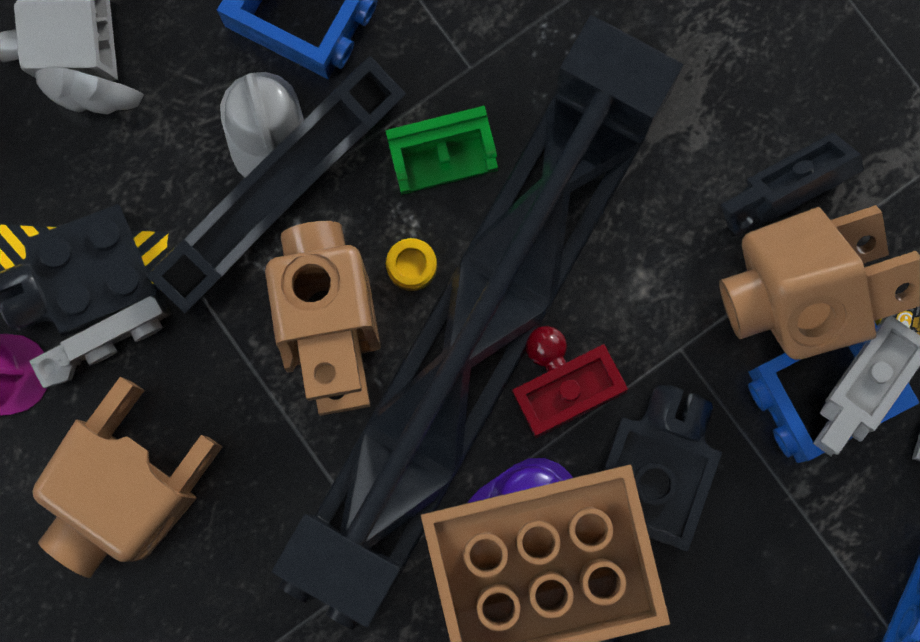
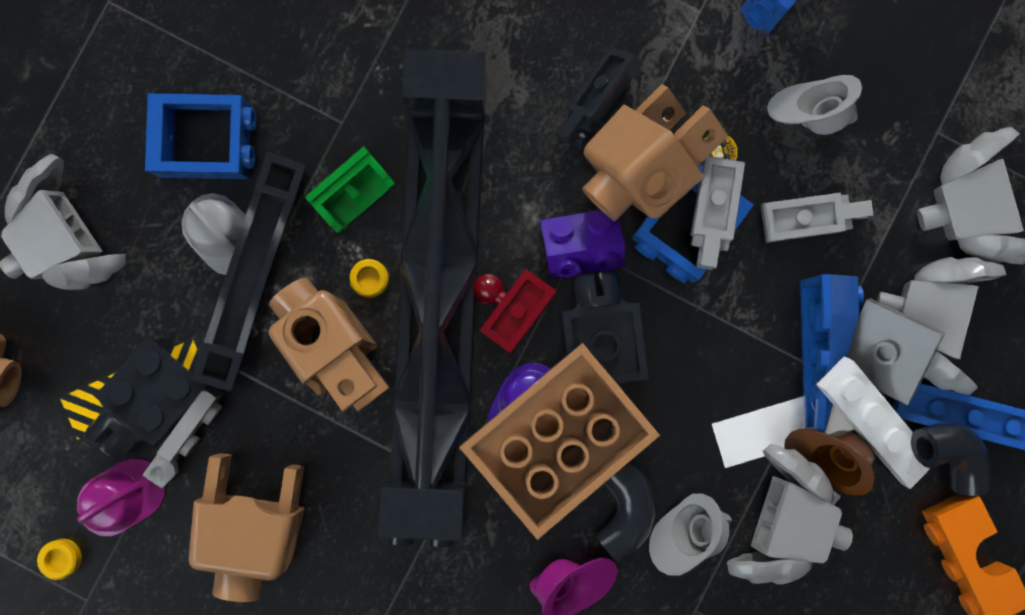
camera: 30 degrees left, 5 degrees up
(686, 349) = (582, 244): none -> dark purple bracket

